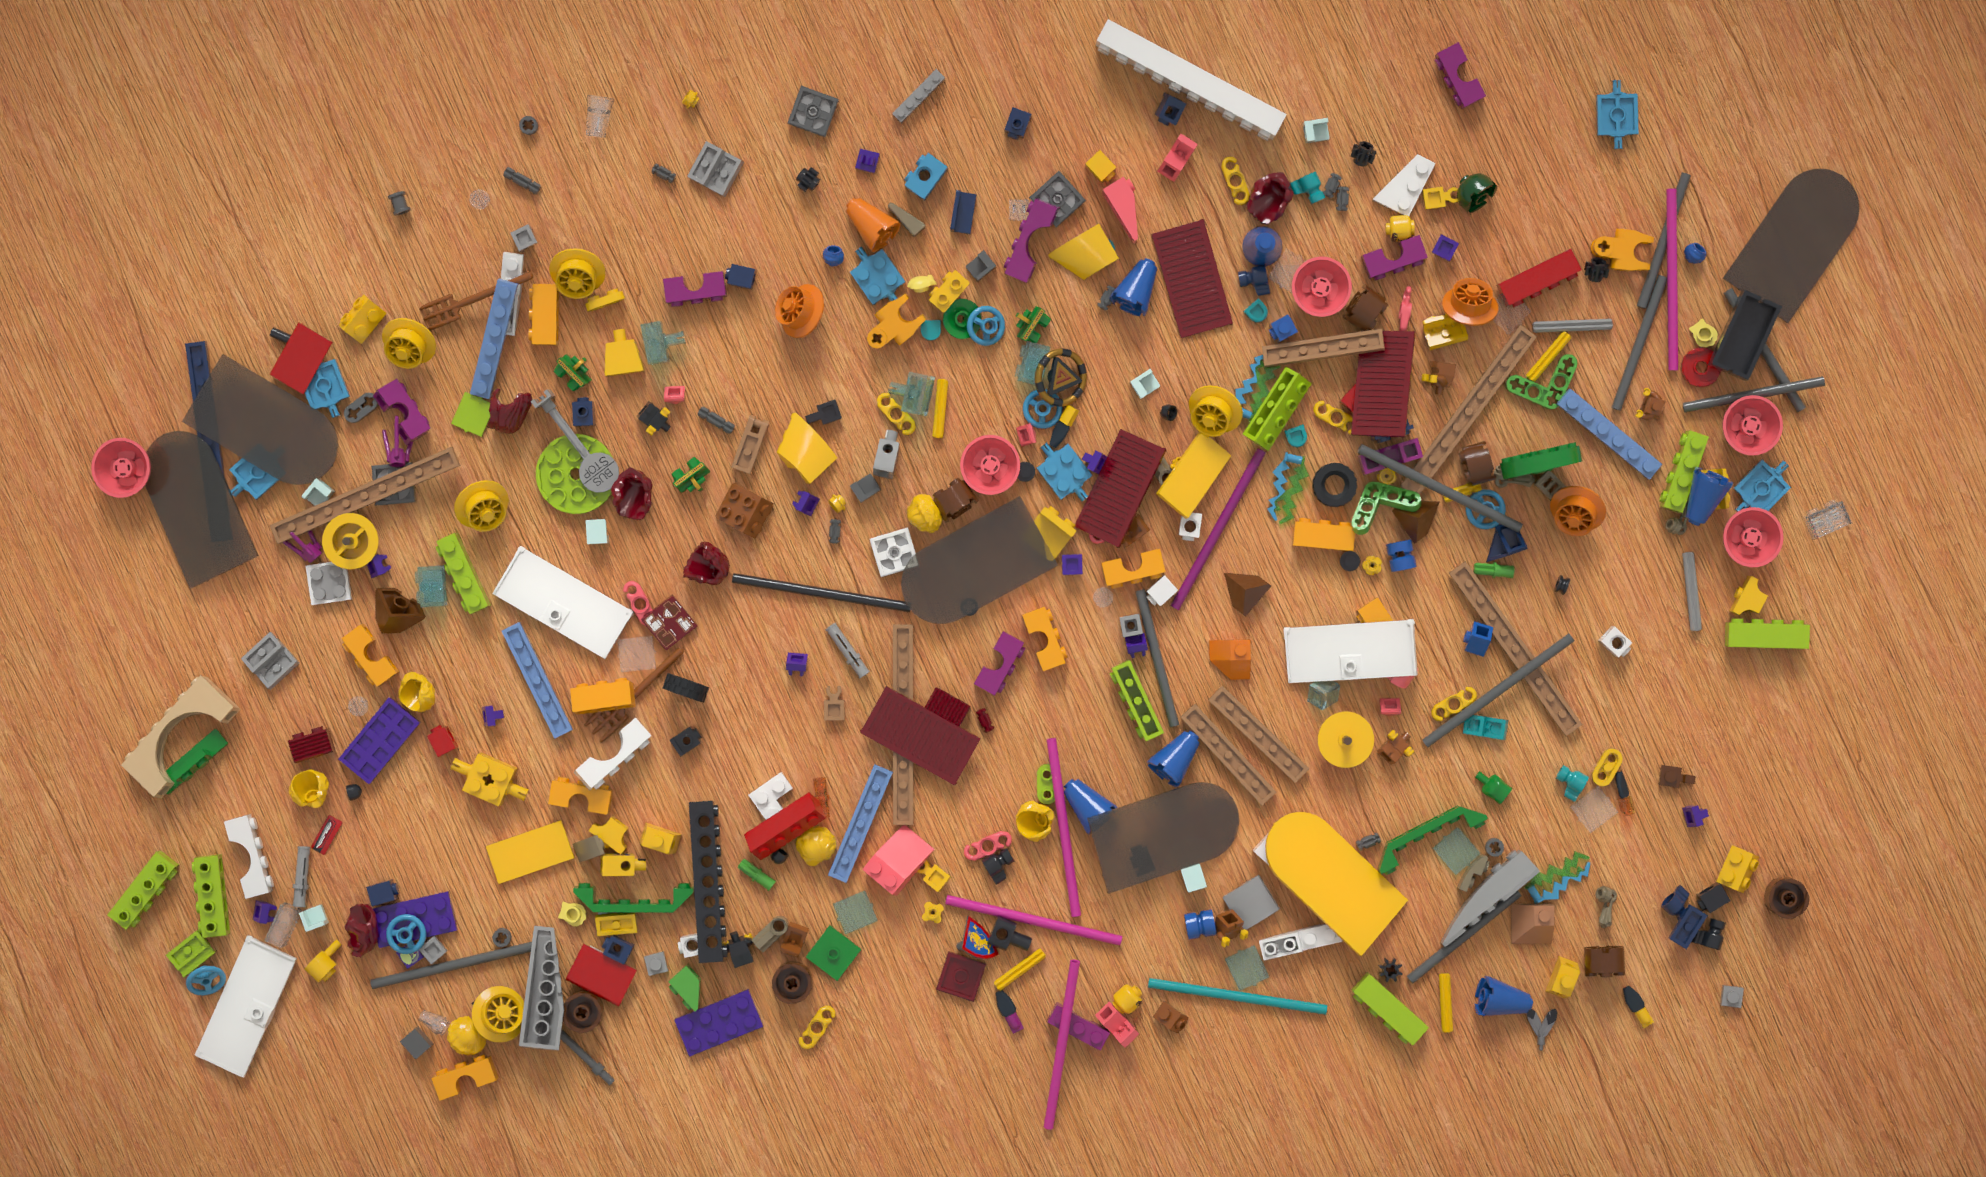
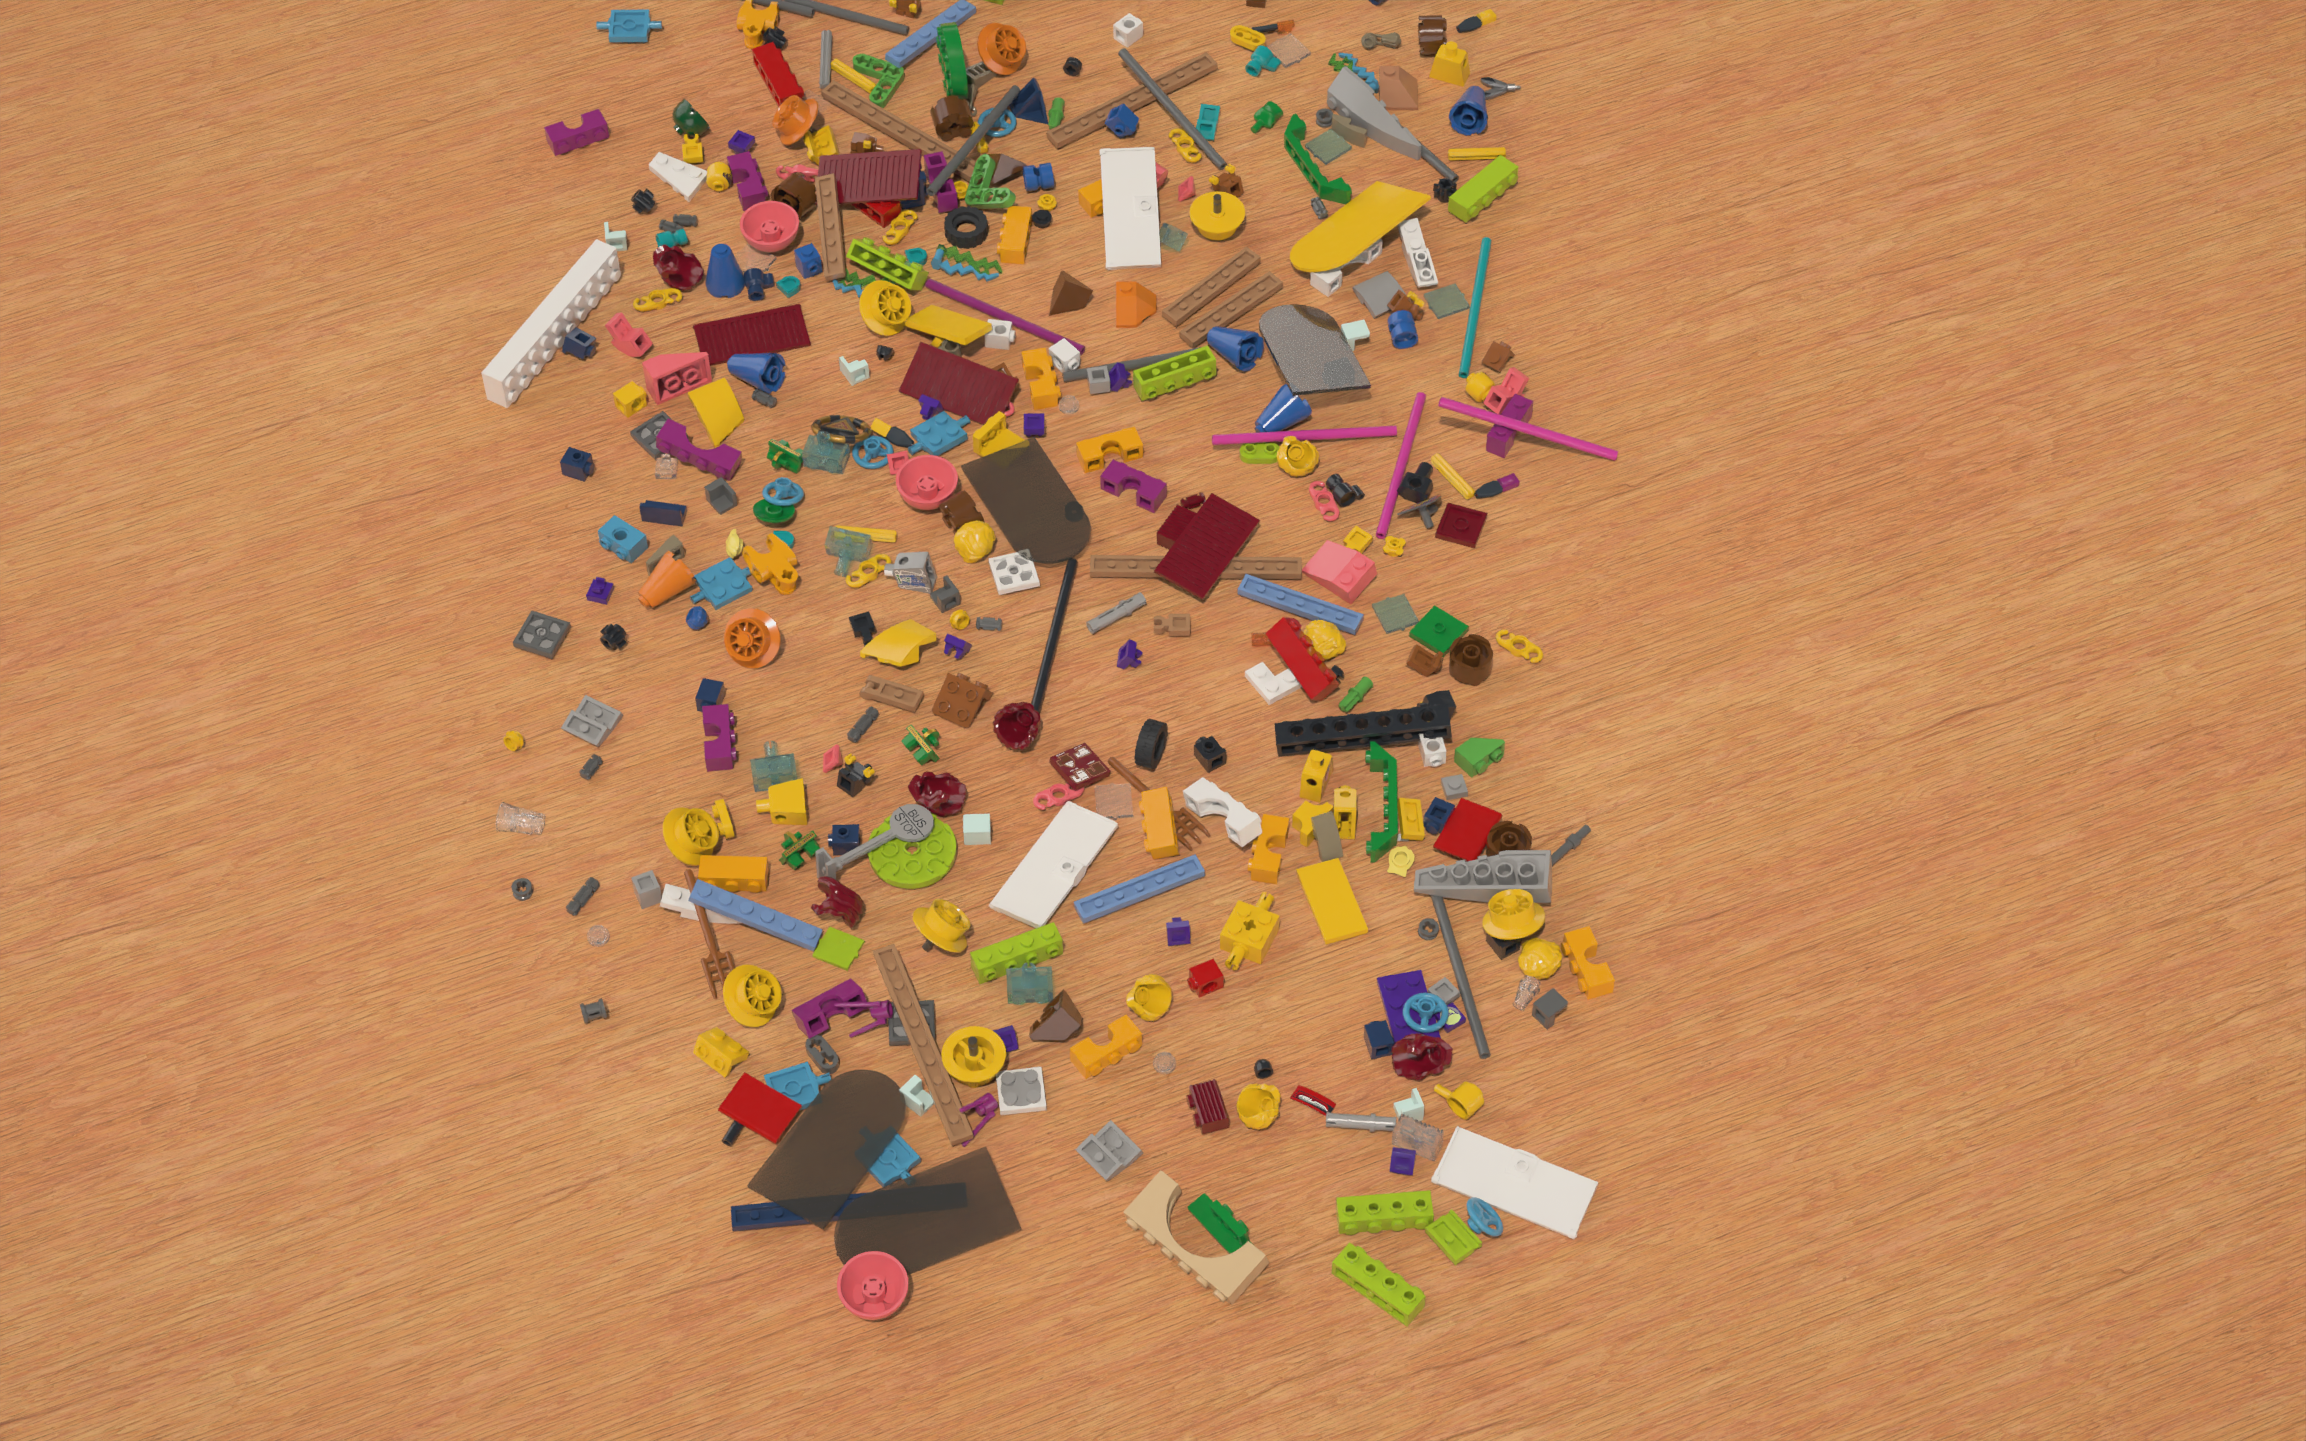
camera: 85 degrees left, 35 degrees down
(243, 831) = (1363, 1165): white arch -> none
(379, 740) = (1204, 1041): dark purple plate -> none
(718, 1022) = (1517, 727): dark purple plate -> none
(769, 934) = (1414, 678): dark tan piece -> none
(918, 96) = (538, 546): light grey piece -> none
(949, 291) = (743, 518): yellow bracket -> none

